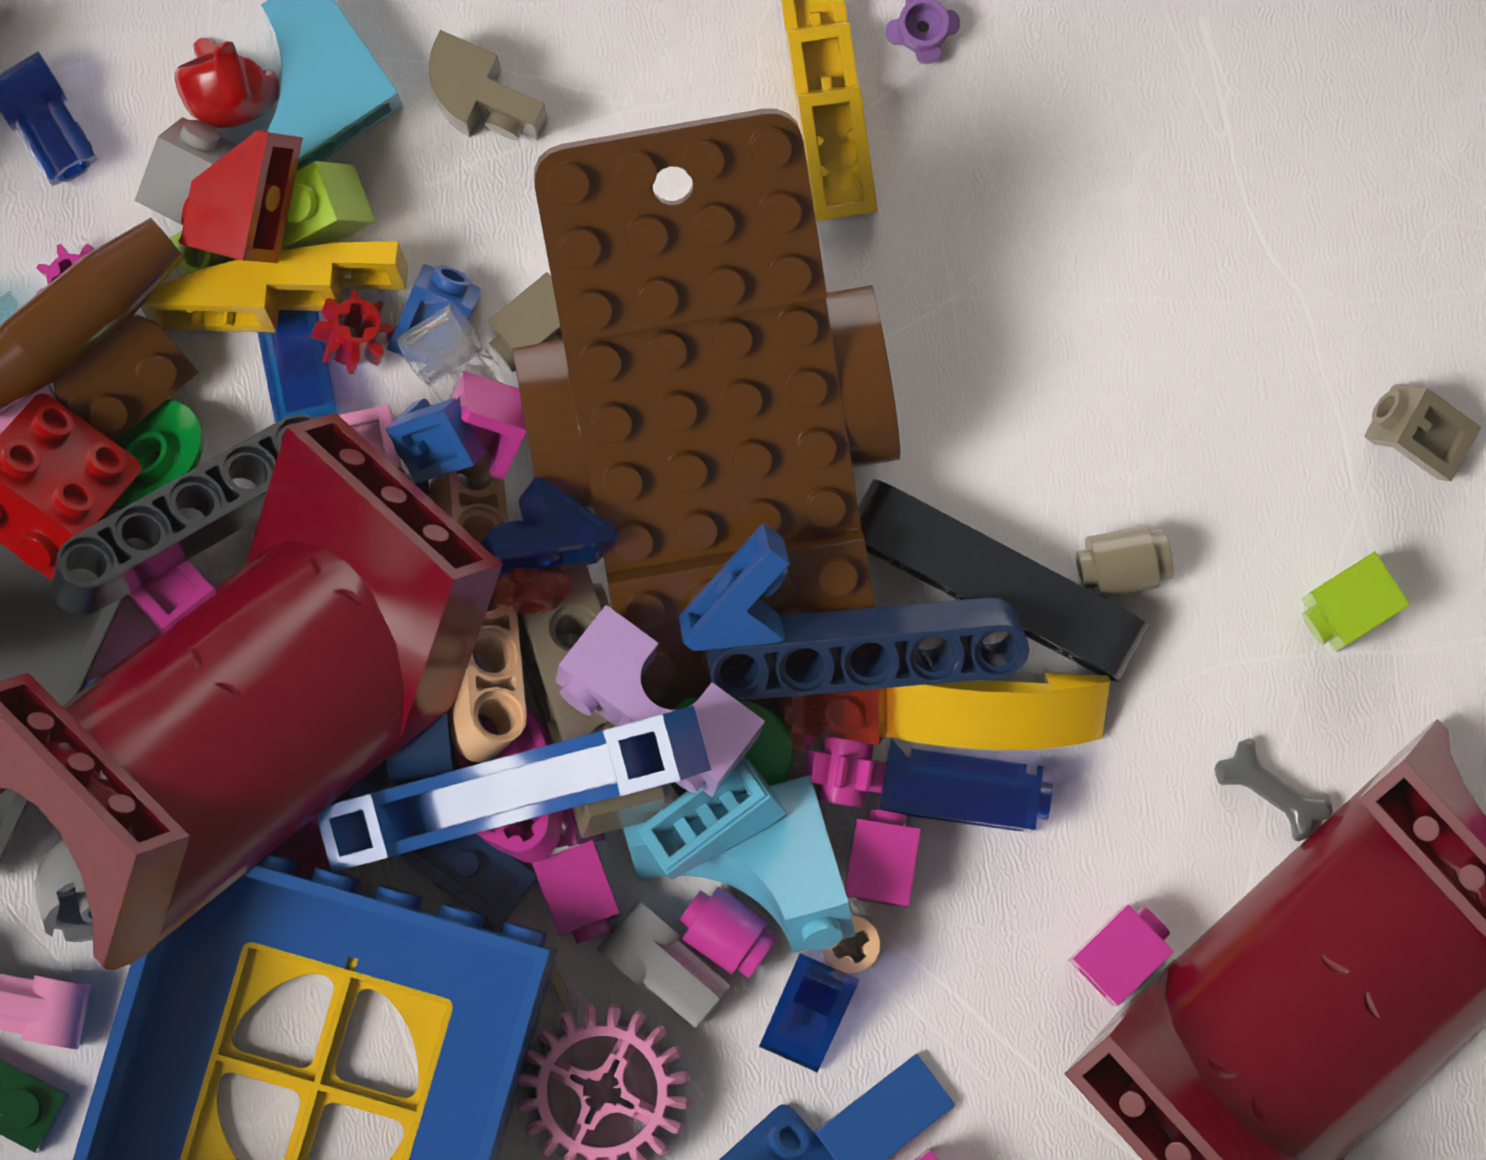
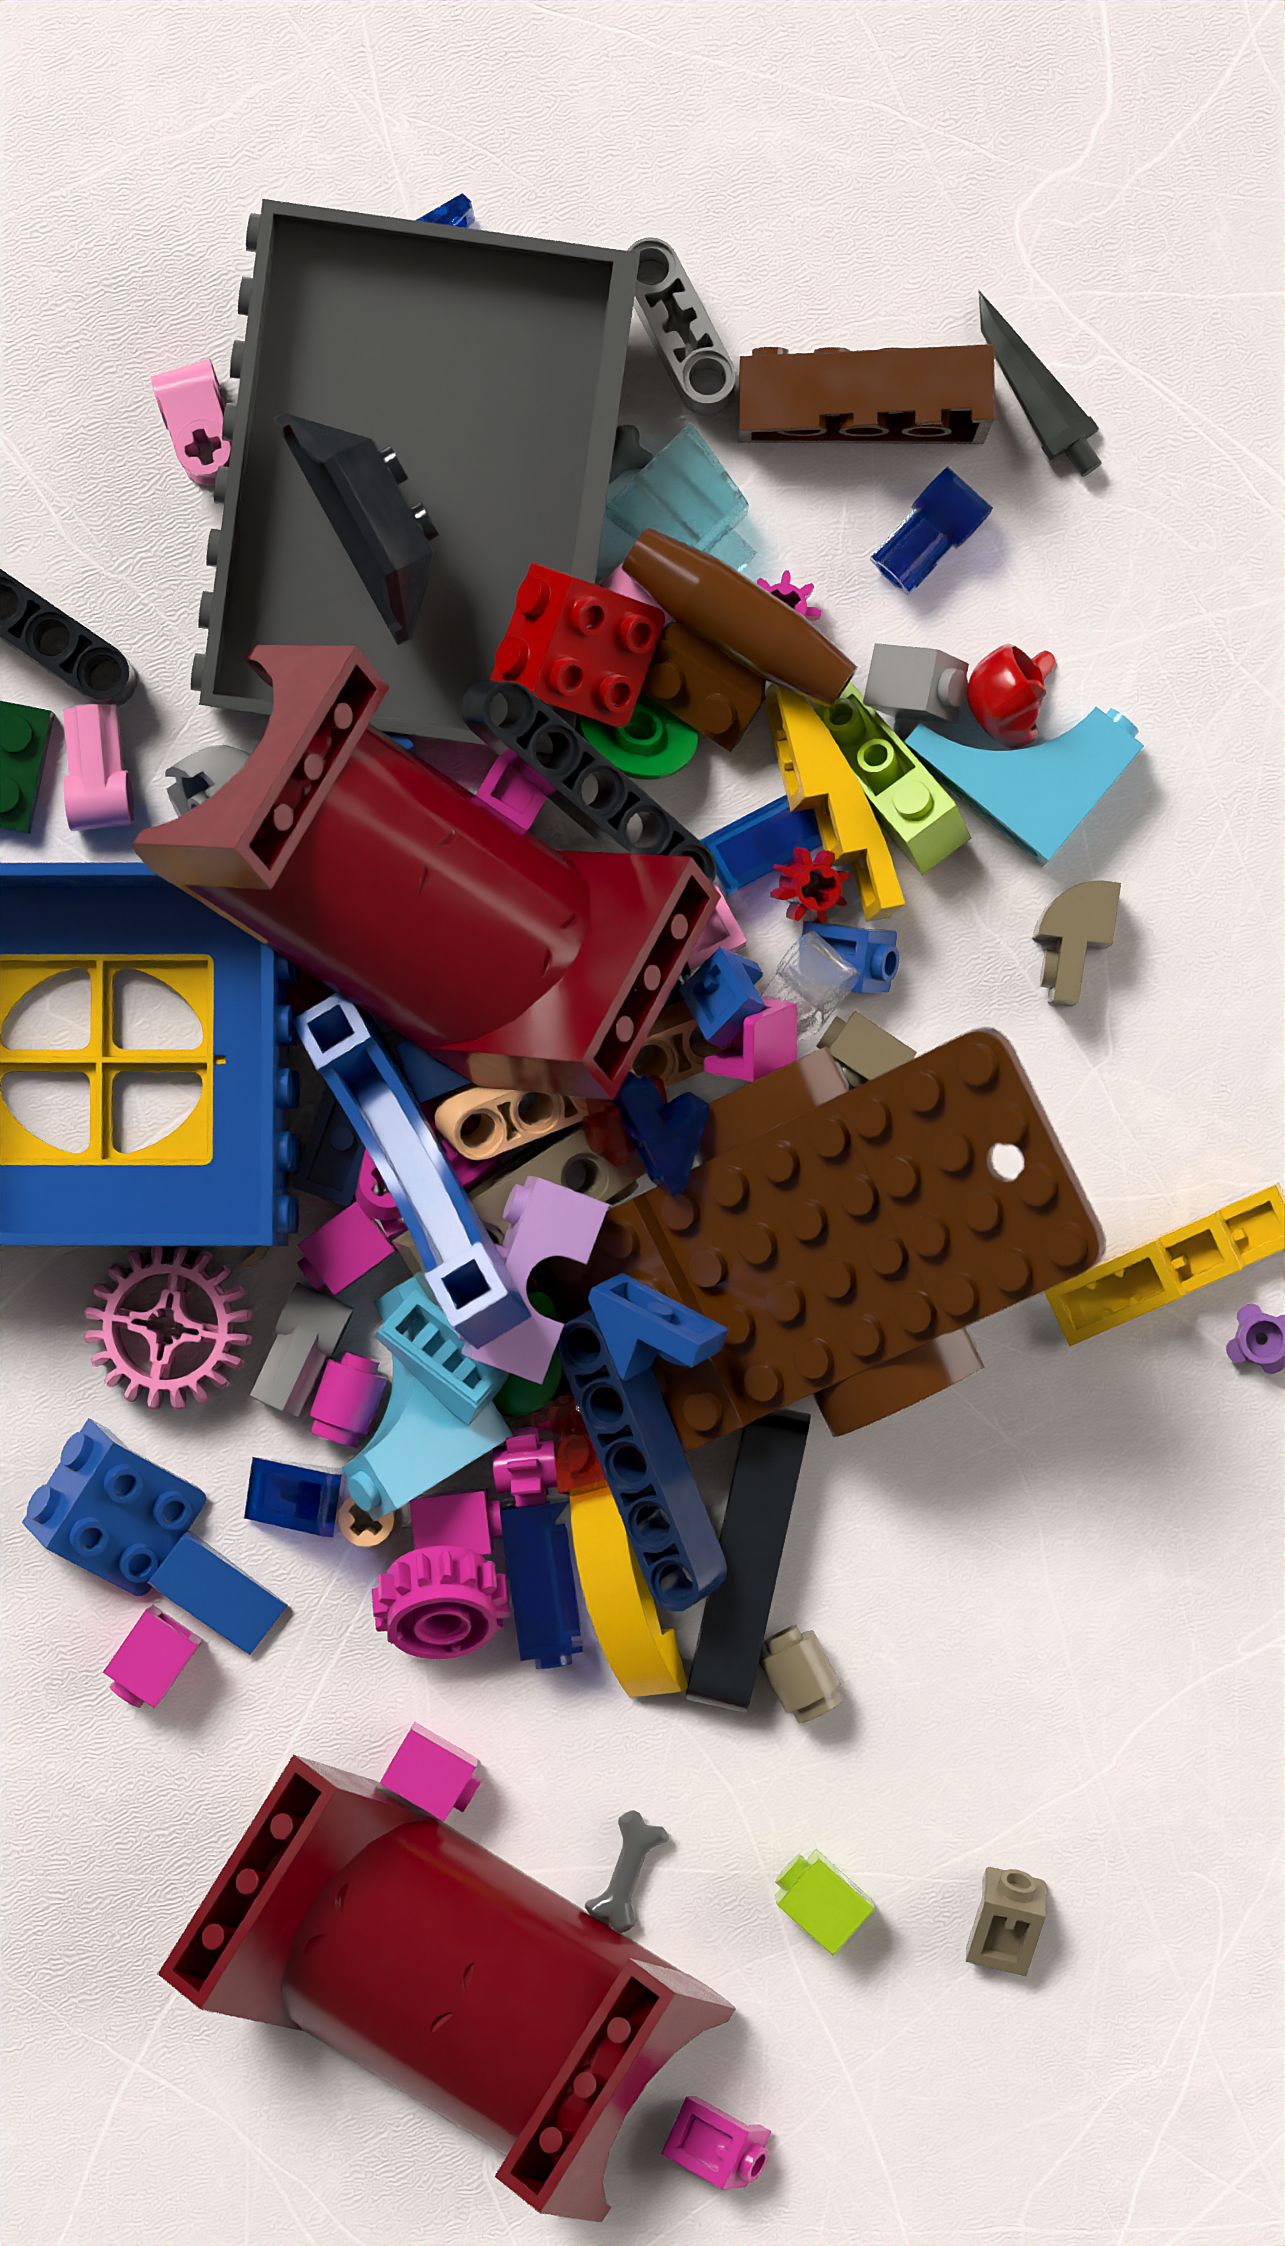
camera: 75 degrees right, 5 degrees up
(244, 199) = (897, 749): red slope -> none
(955, 893) = (440, 1602): none -> dark pink gear

